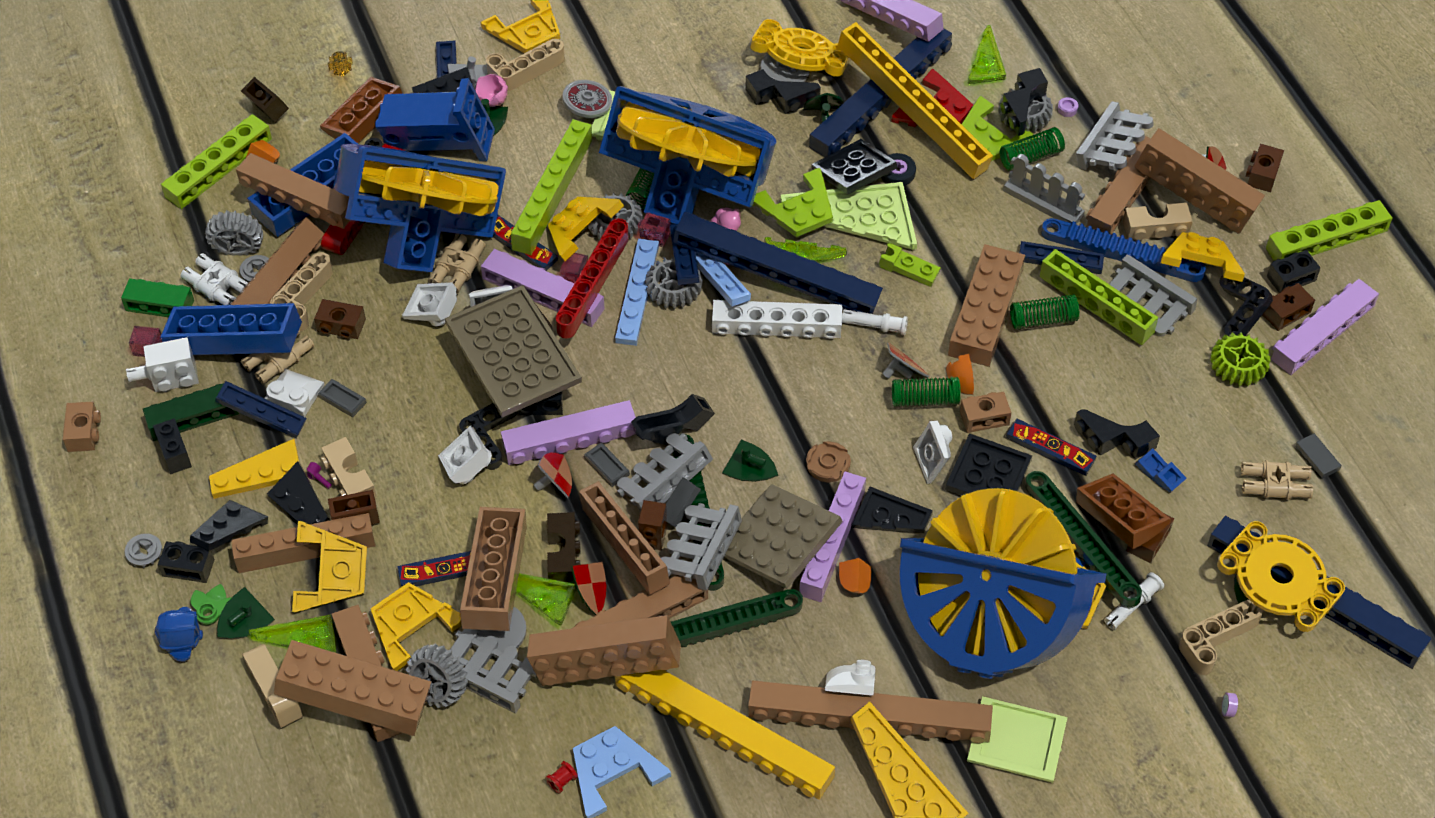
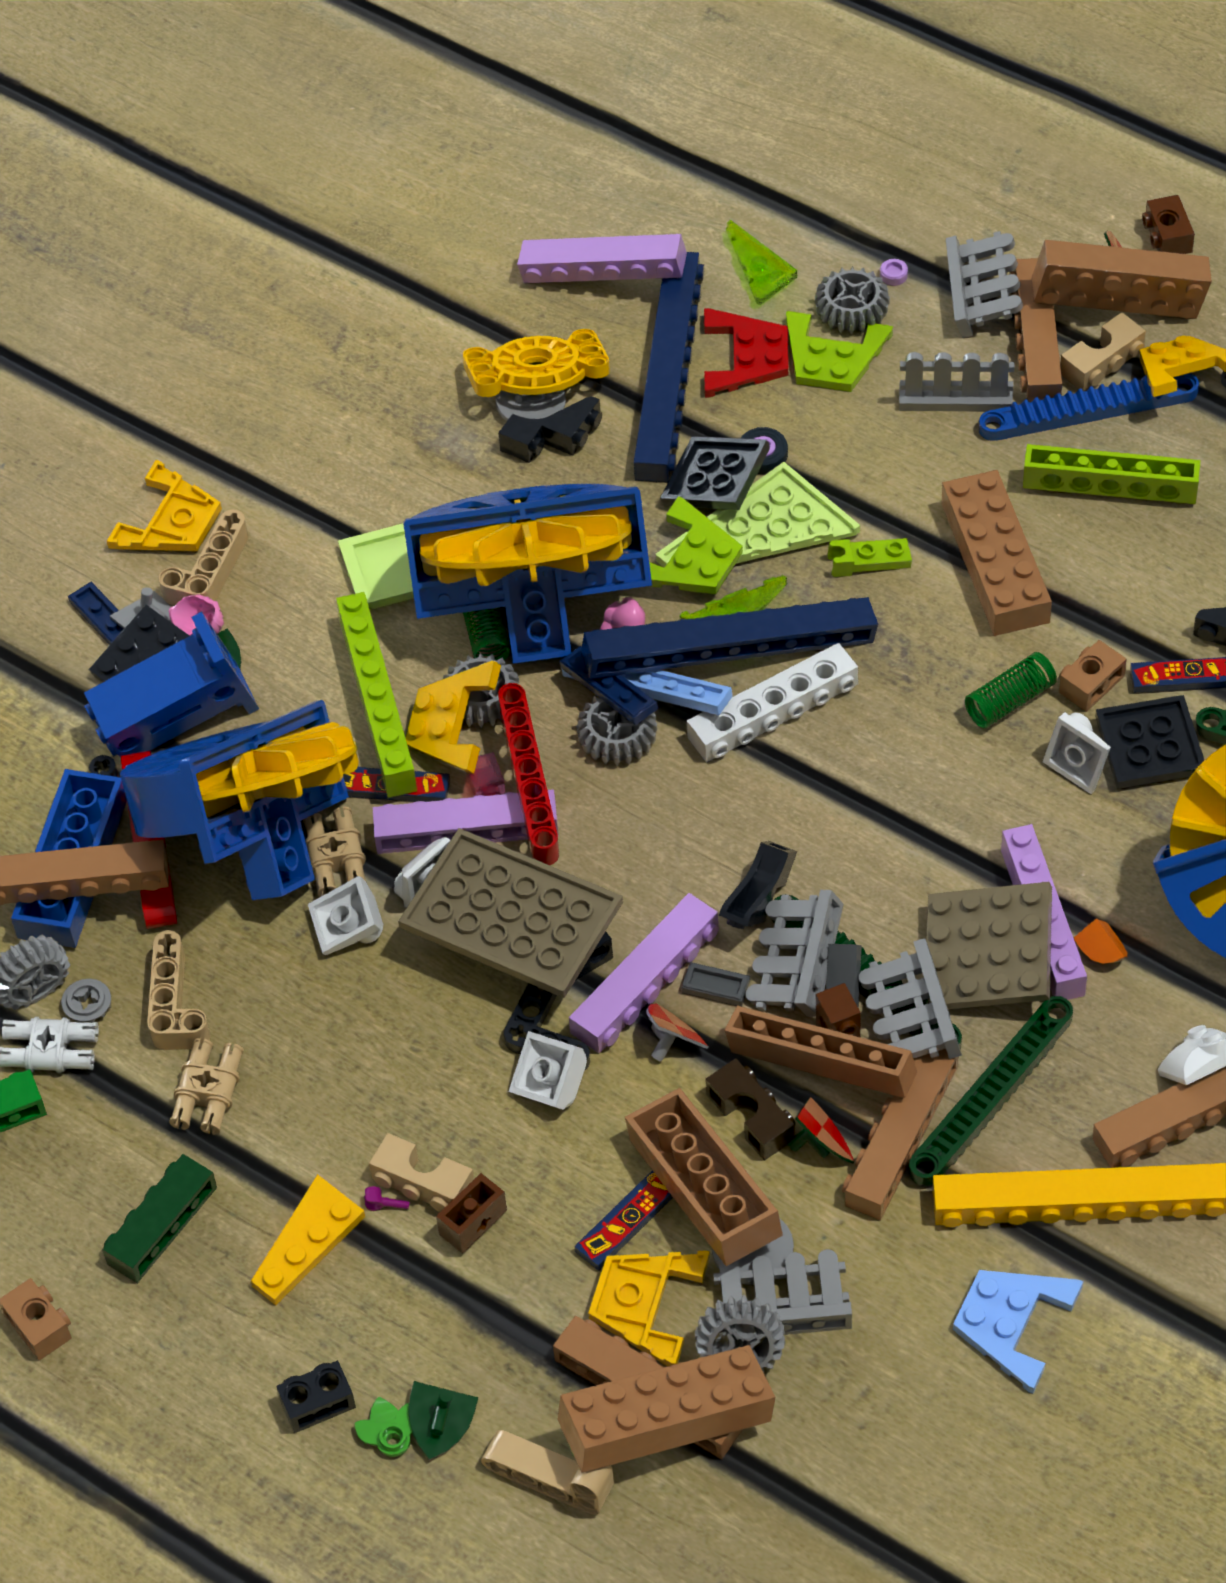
camera: 30 degrees left, 0 degrees up
(142, 337) = (27, 1168): clear pink brick -> none
(149, 543) = (239, 1405): light grey gear -> none
(167, 365) = (88, 1179): white brick -> none
(172, 446) = (176, 1272): black brick -> none
(178, 632) = (382, 1482): blue piece -> none
(225, 524) = (329, 1322): black wing -> none
(235, 328) = (134, 1088): blue brick -> none
(260, 409) = (250, 1163): dark blue tile -> none
(282, 264) = (120, 990): medium nougat brick -> none
(282, 546) = (441, 1288): medium nougat brick -> none
(294, 391) = (266, 1122): white slope -> none
(298, 497) = (390, 1242): black wing -> none
(311, 631) = (528, 1395): clear neon green wing -> none
(340, 319) = (257, 987): reddish brown brick -> none
(340, 568) = (515, 1290): yellow wing -> none
(342, 398) = (331, 1093): dark grey tile -> none
(360, 110) = (48, 731): dark orange slope -> none
(547, 595) = (785, 1172): clear neon green wing -> none
(561, 777) = (969, 1363): red bush -> none
(587, 98) = (326, 564): light grey shield -> none
(604, 650) = (914, 1189): medium nougat brick -> none
(636, 293) = (579, 764): light blue plate -> none
(654, 228) = (540, 676): clear pink brick -> none
(750, 464) = (877, 887): dark green shield -> none
(825, 103) = (622, 419): dark green shield -> none
(828, 461) = (963, 833): medium nougat tile -> none
(885, 322) = (897, 637): white pin -> none
(891, 513) = (1083, 849): black wing -> none
(896, 364) = (953, 678): light grey shield -> none
(915, 100) = (727, 355): yellow brick -> none
(962, 370) = (1030, 641): orange brick -> none
(1015, 104) = (849, 297): black arch -> none
(1018, 318) = (1046, 542): green piece -> none
(1036, 253) = (1011, 457): dark blue tile -> none
(1050, 143) = (911, 326): green piece -> none
(1159, 289) = (1166, 428): light grey fence -> none

